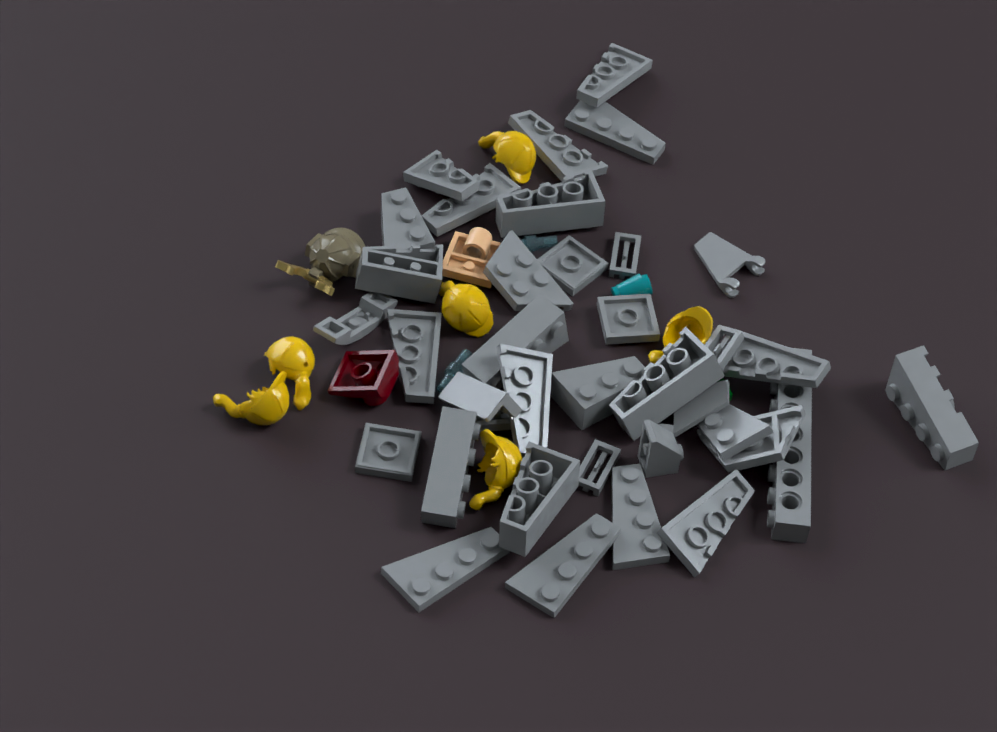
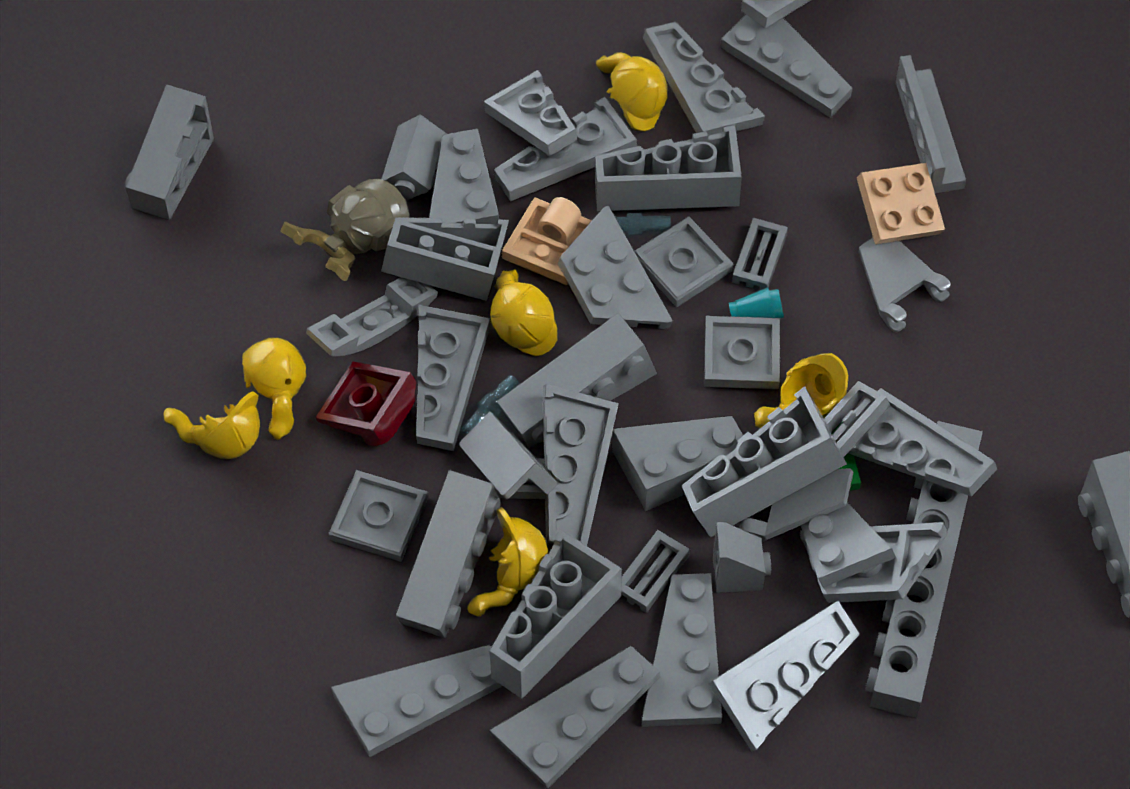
camera: 15 degrees right, 10 degrees up
(178, 223) = (170, 152): none -> light grey wedge
(361, 210) = (414, 157): none -> light grey brick
(718, 212) = (900, 203): none -> light nougat plate
(725, 164) = (929, 126): none -> light grey fence

